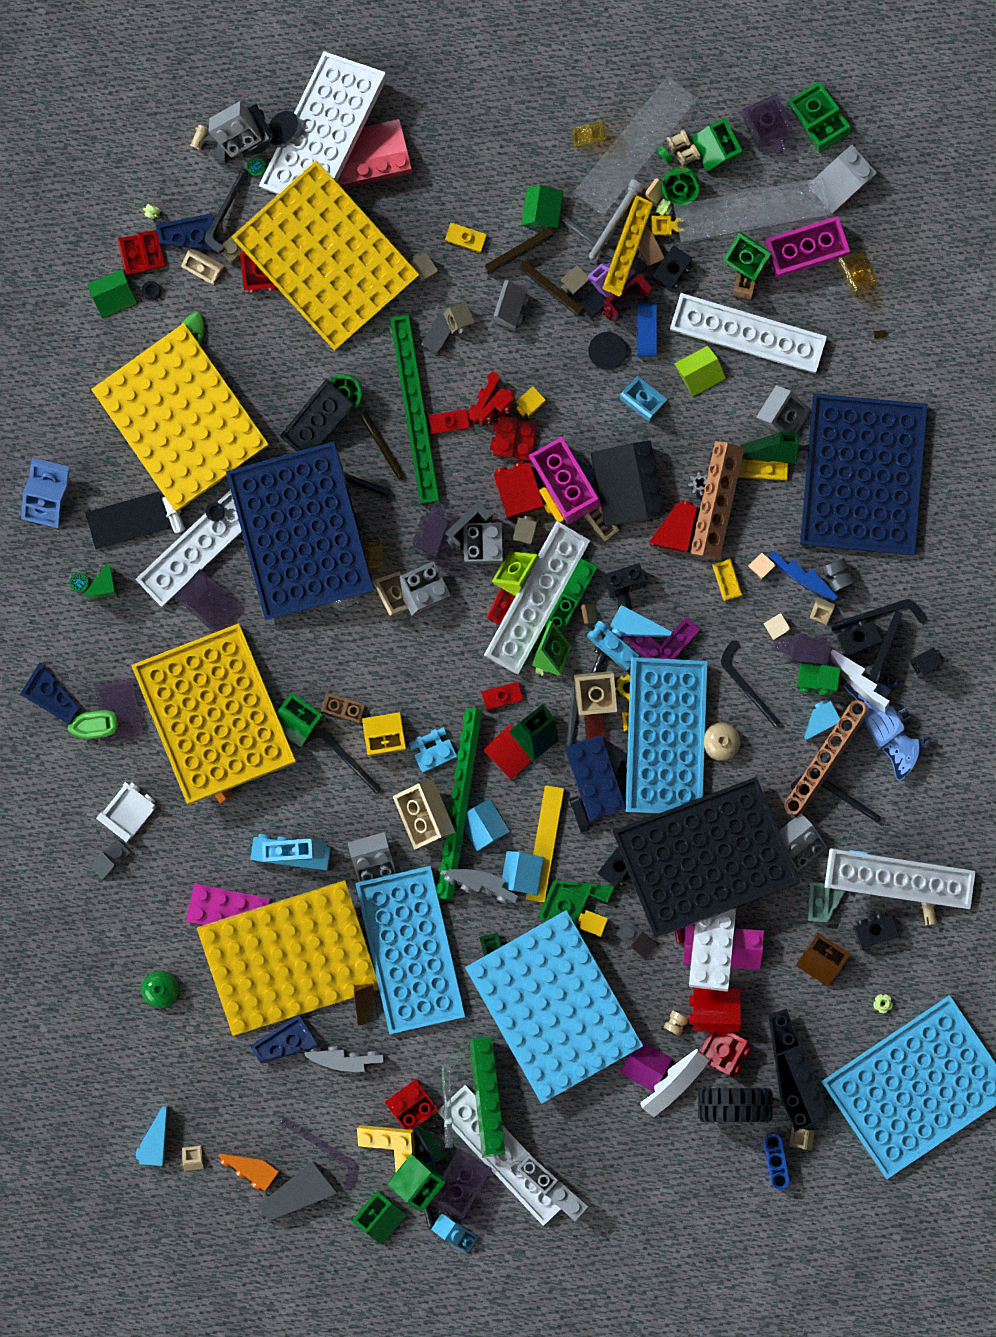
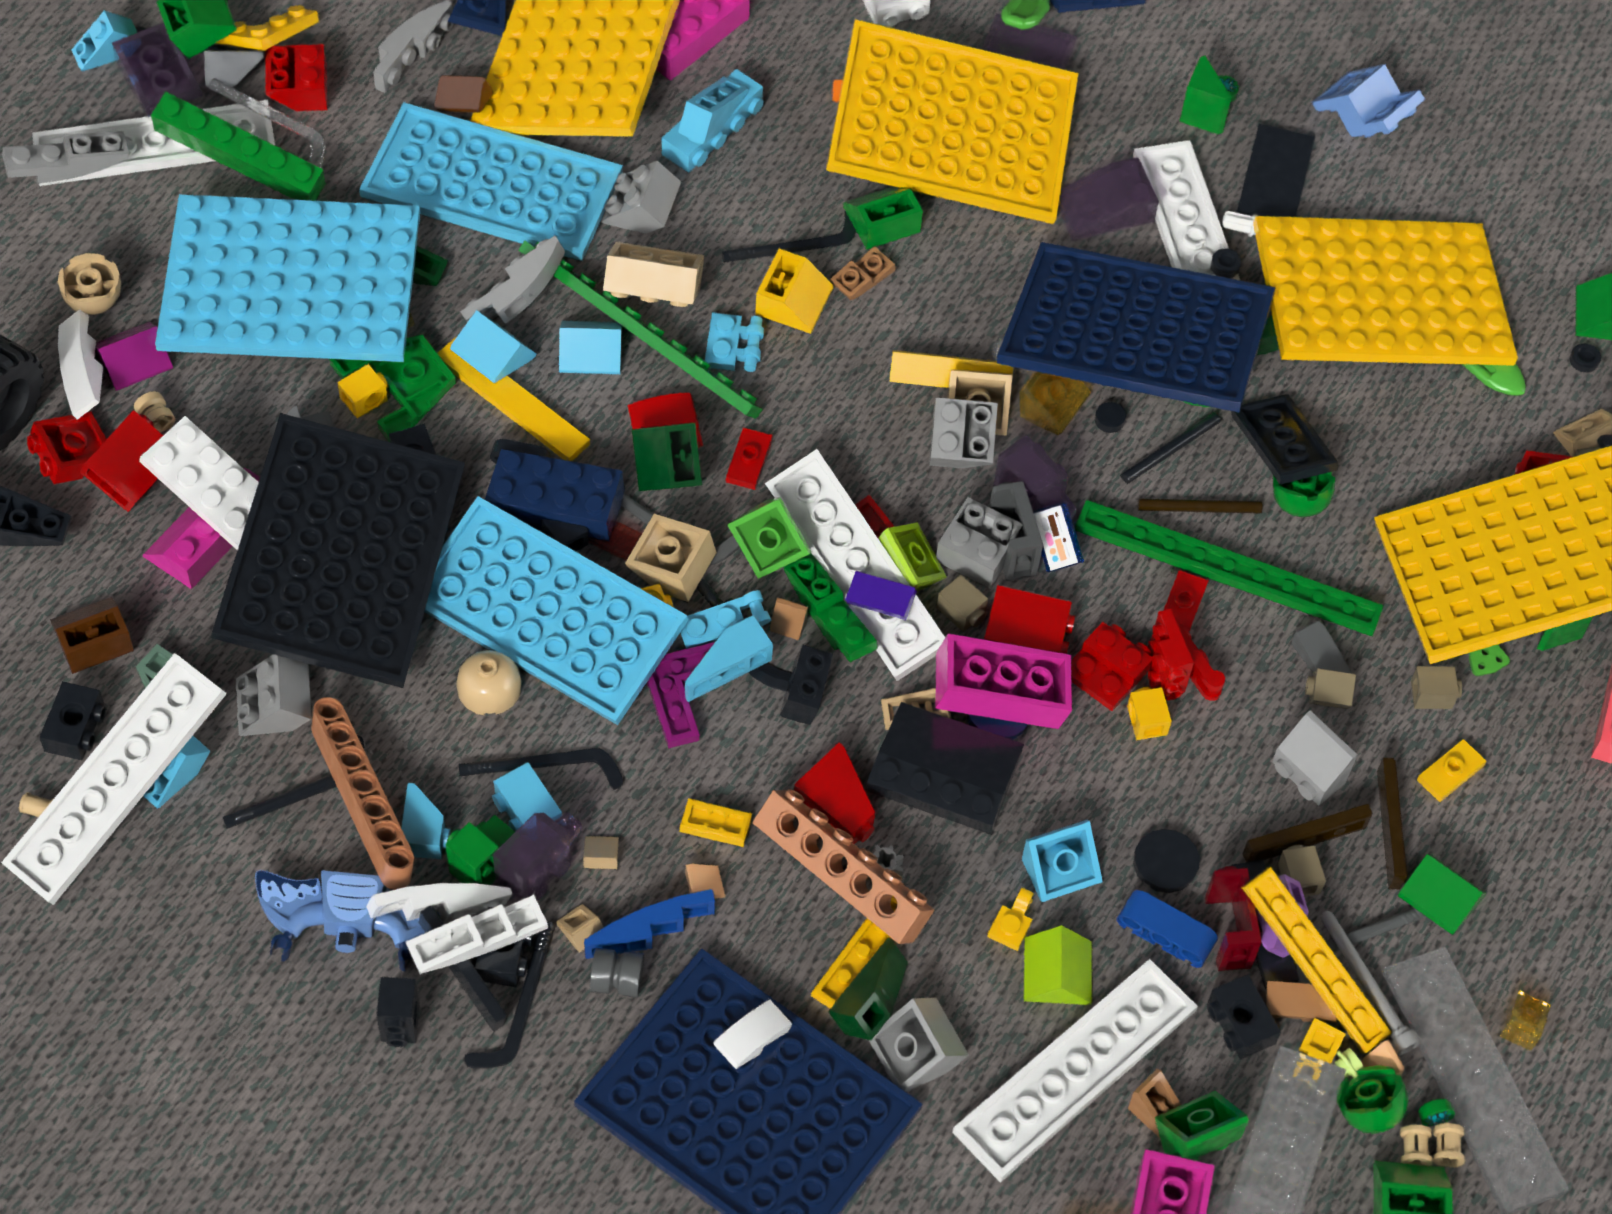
camera: 115 degrees right, 25 degrees down
(382, 624) = (936, 369): none -> yellow tile
(458, 503) = (1058, 537): none -> slope
(552, 571) = (880, 595): none -> dark purple tile
(624, 1112) = (90, 283): none -> tan cylinder
(690, 406) = (1012, 924): none -> yellow plate
(777, 676) = (522, 795): none -> medium azure brick
(831, 490) = (752, 1033): none -> white slope
(869, 647) = (476, 935): none -> white slope

